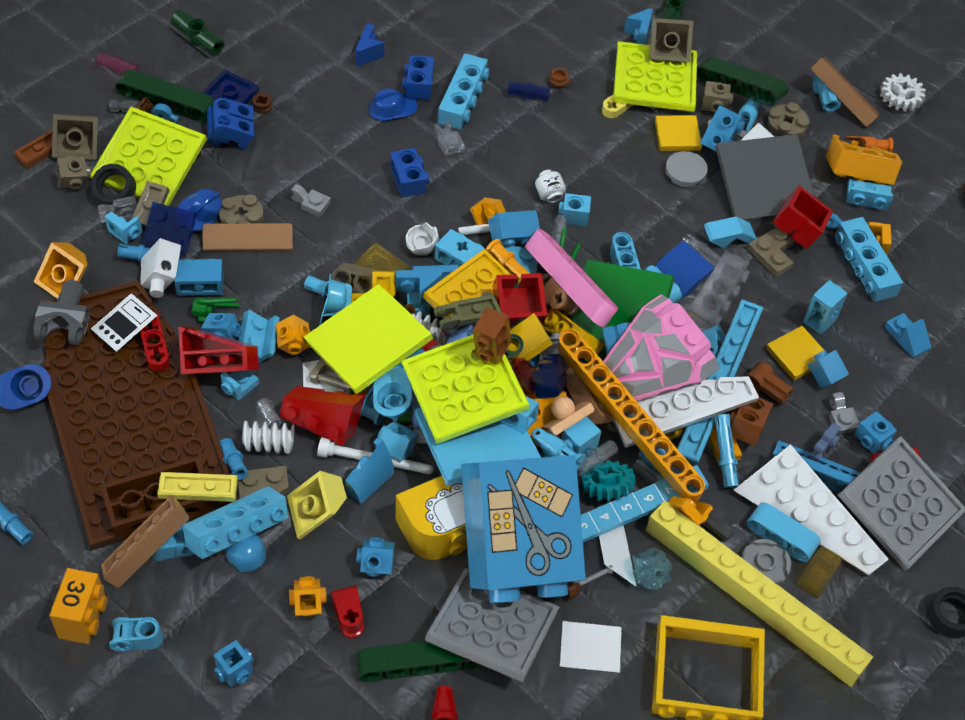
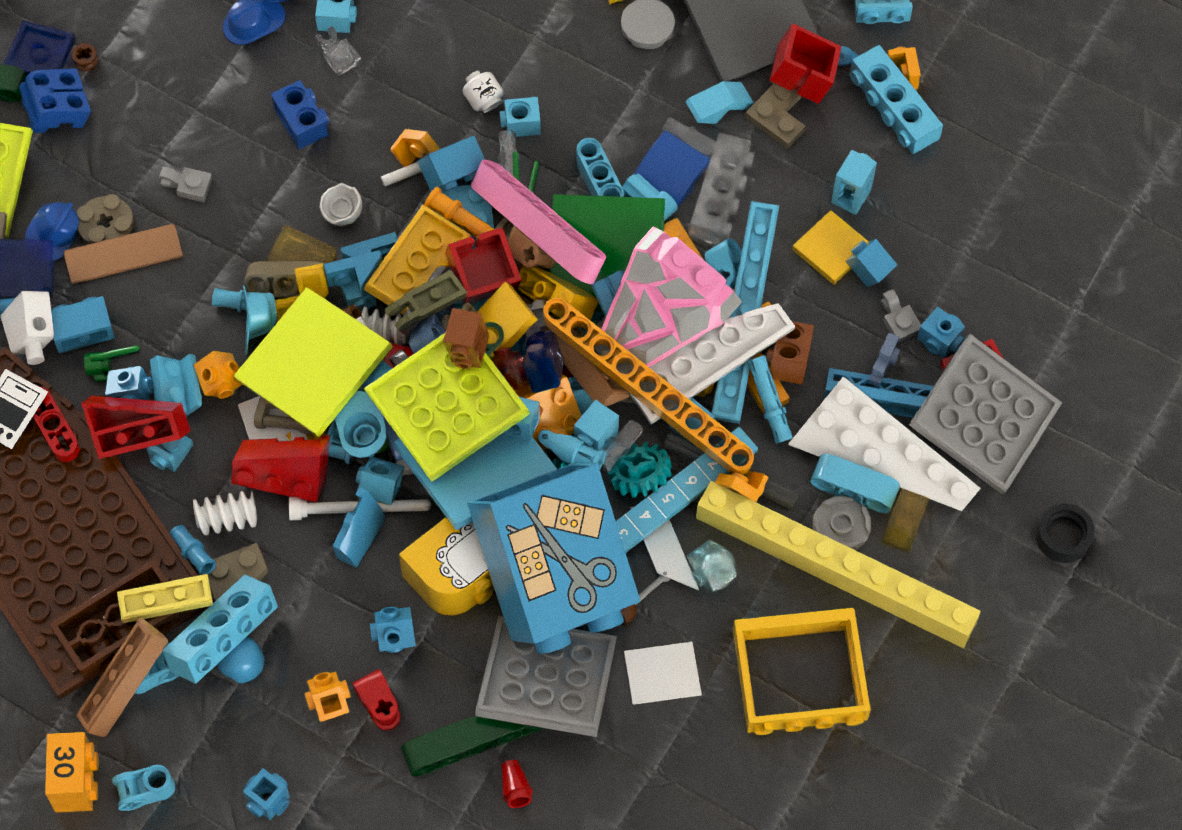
camera: 10 degrees left, 10 degrees up
(266, 409) = (217, 482): clear pin -> none
(315, 502) = (305, 580): light yellow slope -> none
(455, 249) = (389, 210): medium azure brick -> none
(566, 414) = (574, 405): light nougat tile -> none
(763, 379) = (797, 293): dark orange piece -> none
(909, 335) = (962, 191): dark azure slope -> none

